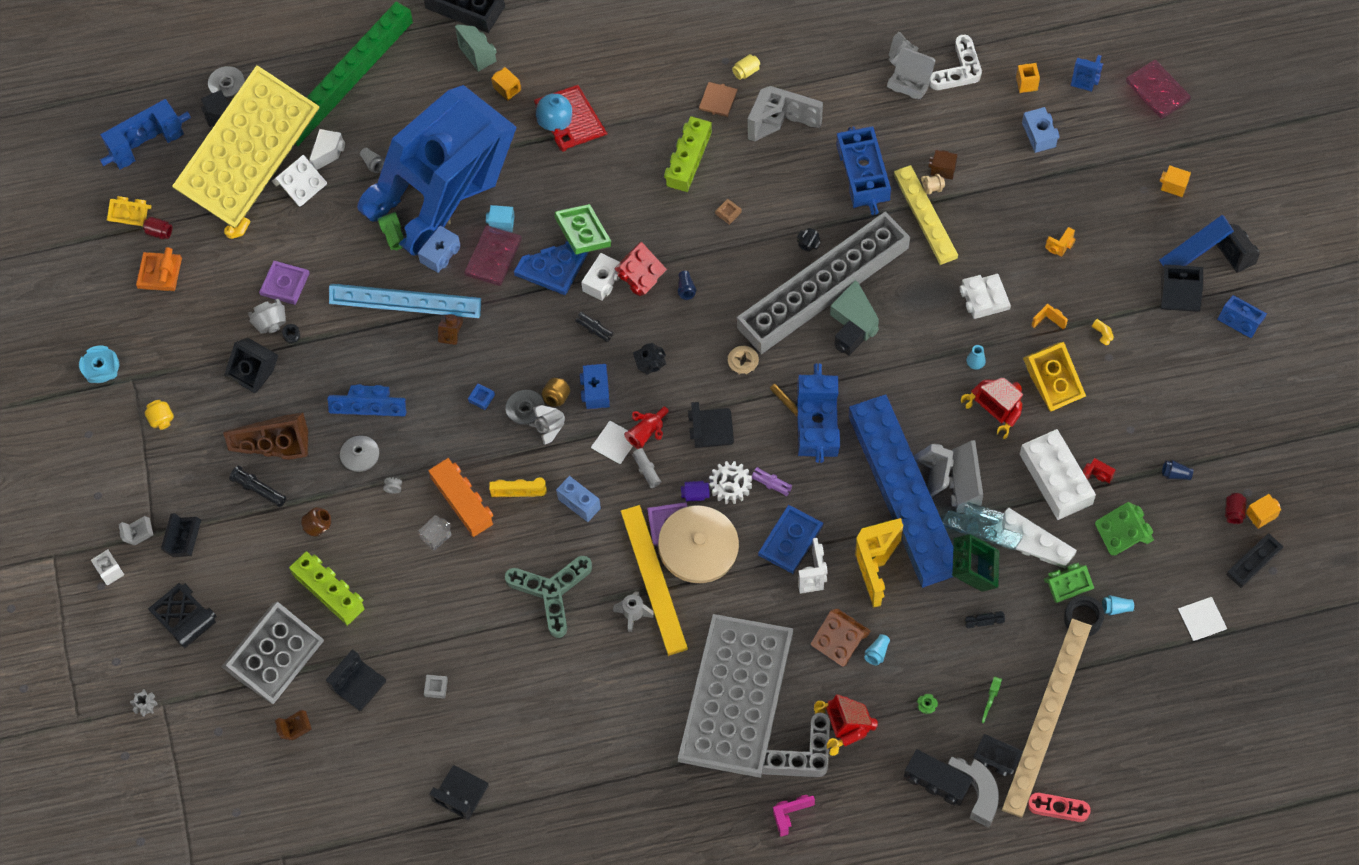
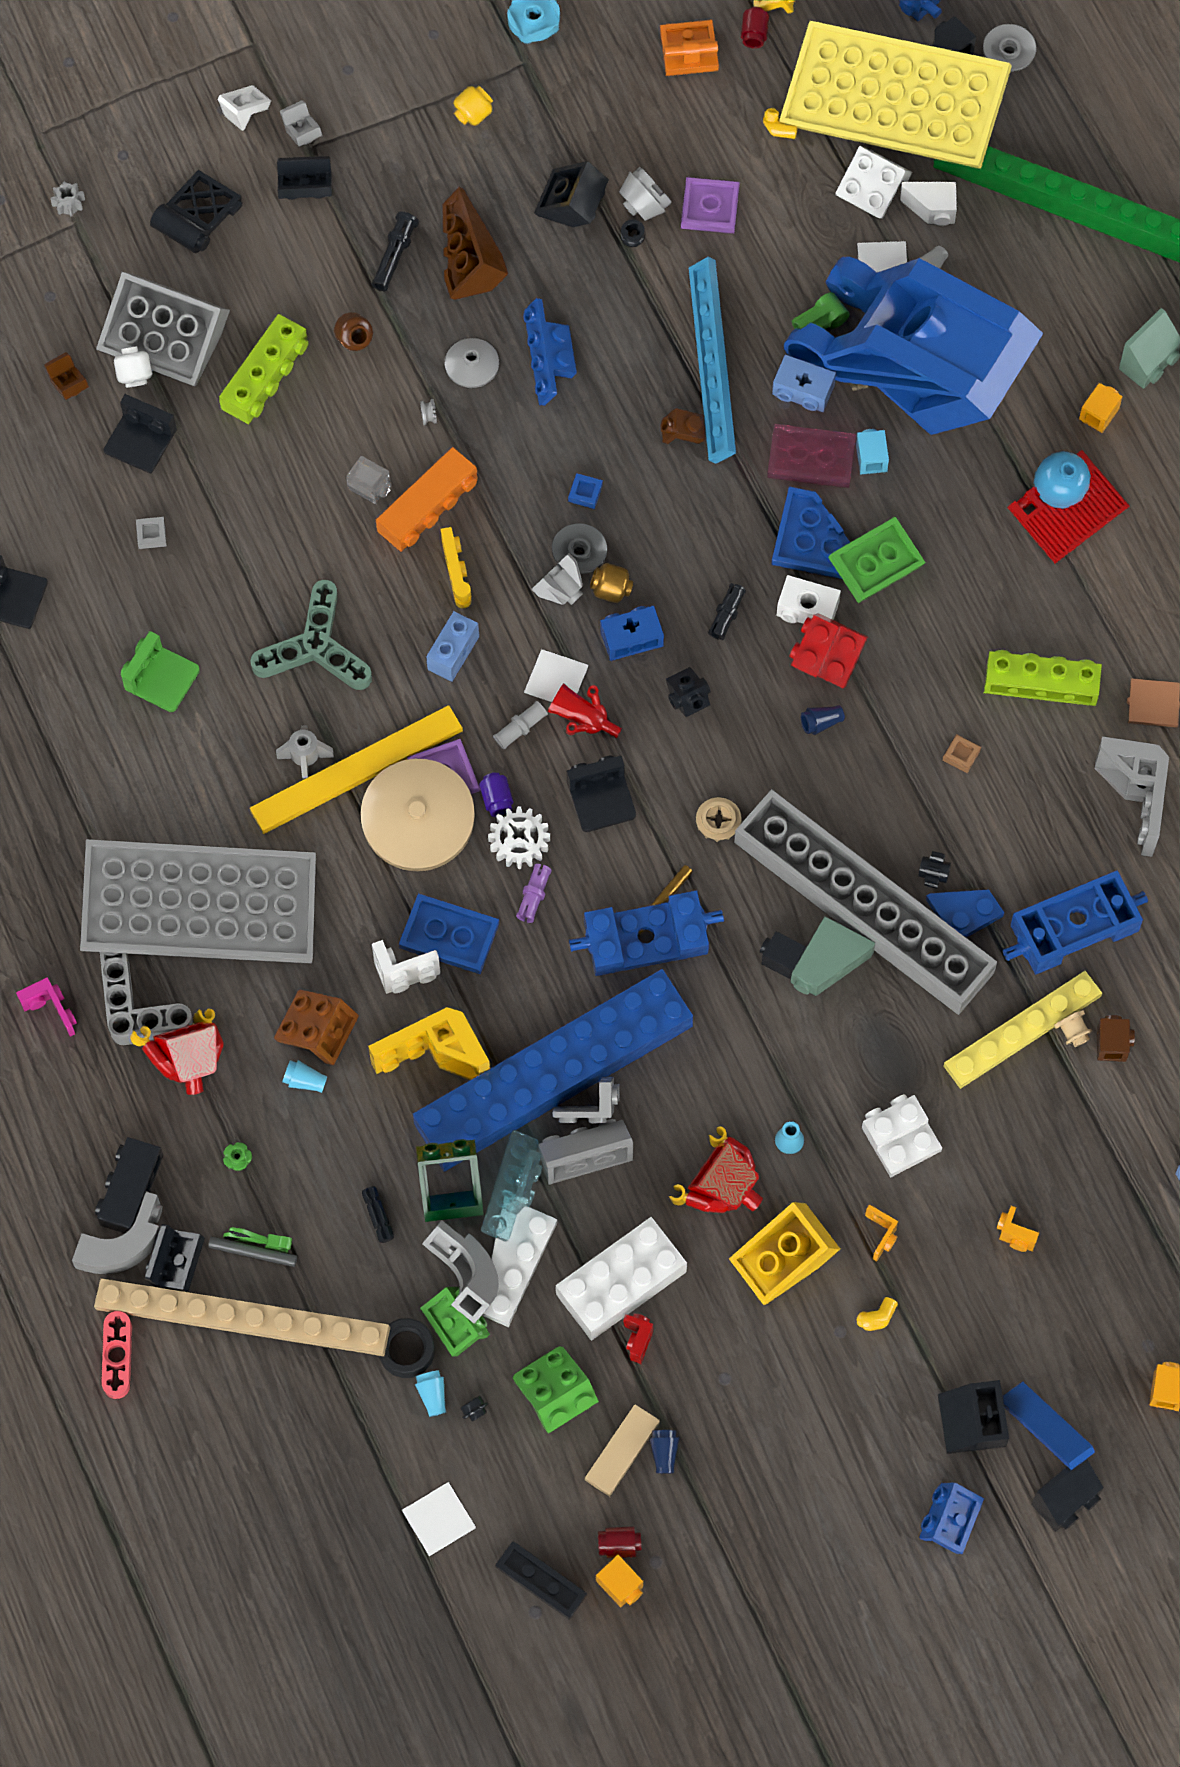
camera: 75 degrees right, 5 degrees up
(300, 676) = (132, 367): none -> white head
(356, 186) = (882, 254): none -> white sticker
(551, 697) = (158, 674): none -> bright green bracket
(837, 229) = (966, 910): none -> blue wing
(997, 705) = (252, 1251): none -> dark grey bar
(1038, 562) = (472, 1267): none -> light grey arch
(1131, 581) = (474, 1409): none -> black plate
(1172, 497) = (622, 1450): none -> tan tile

